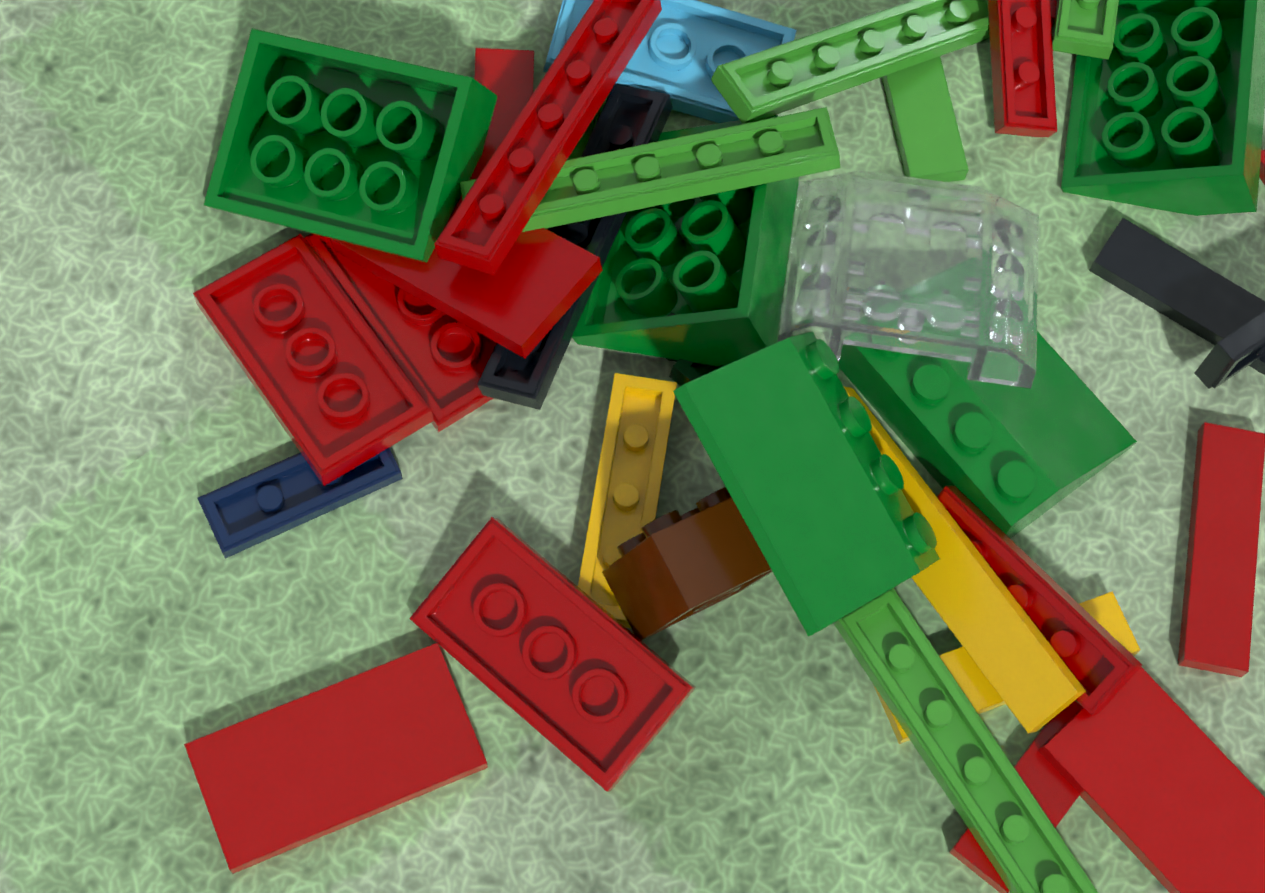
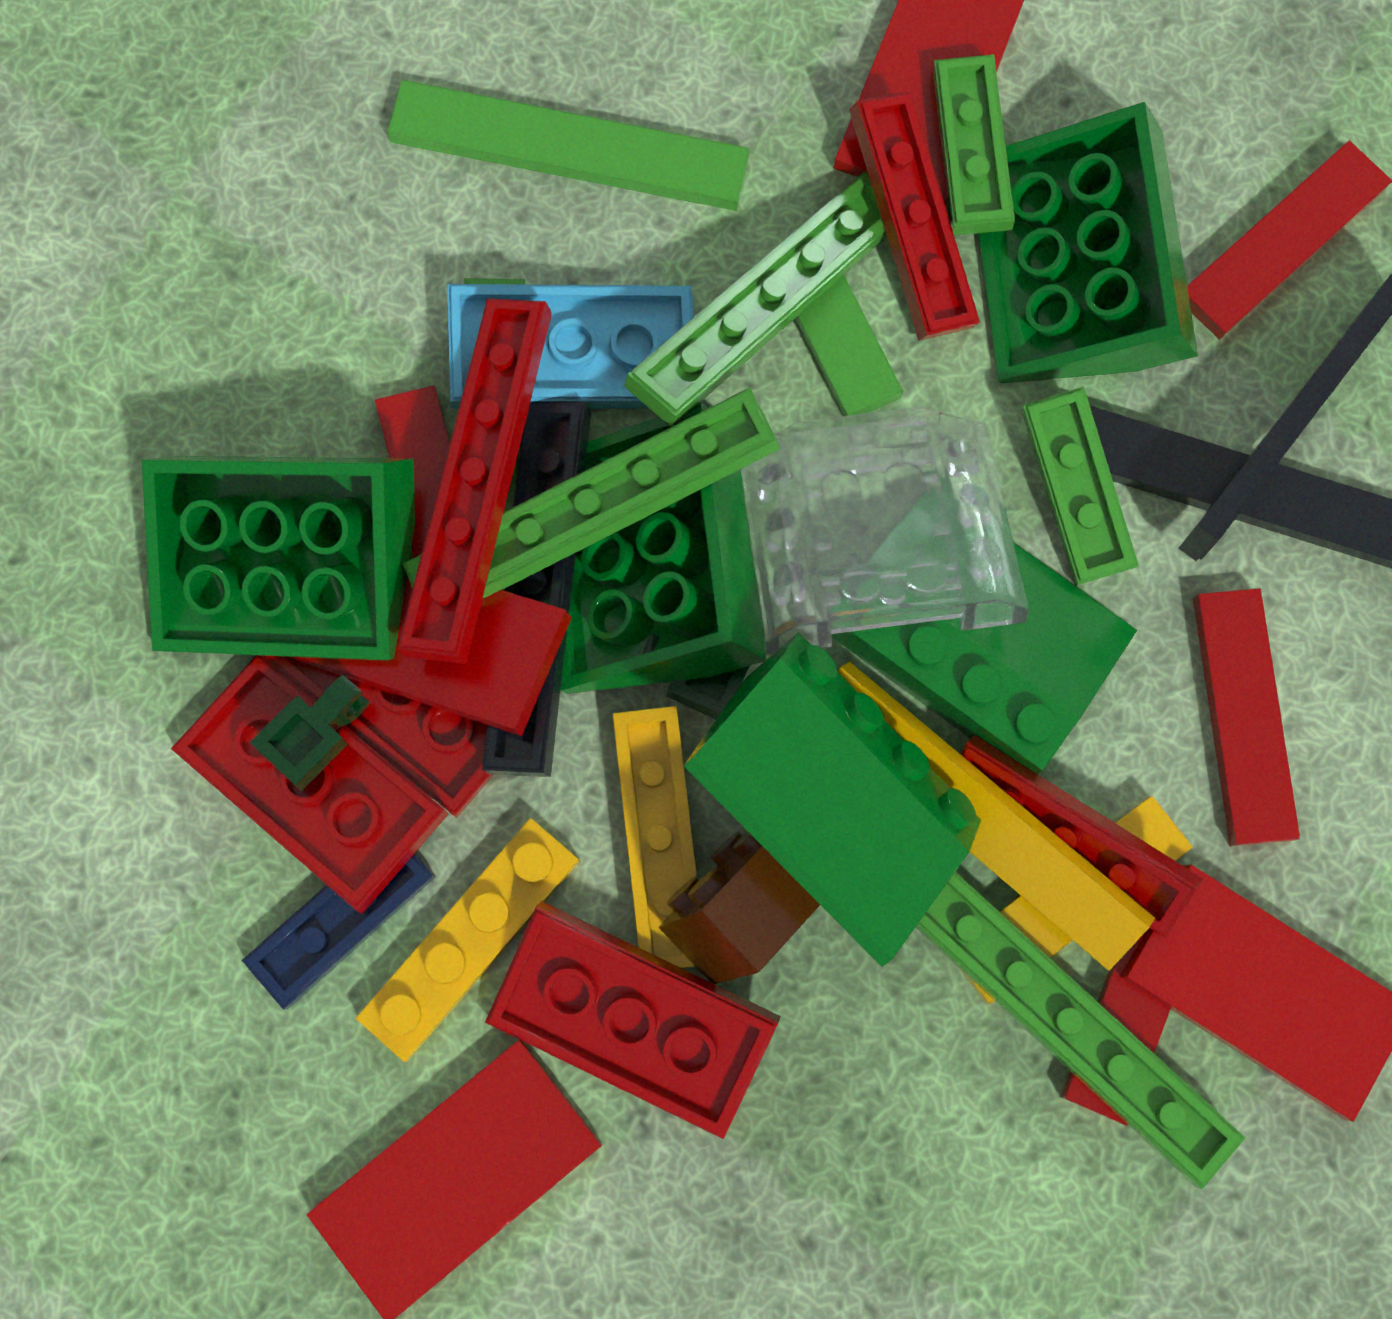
camera: 10 degrees left, 10 degrees up
(326, 310) = (305, 739): none -> dark green plate
(414, 541) = (467, 940): none -> yellow plate
(1113, 296) = (1079, 486): none -> bright green tile

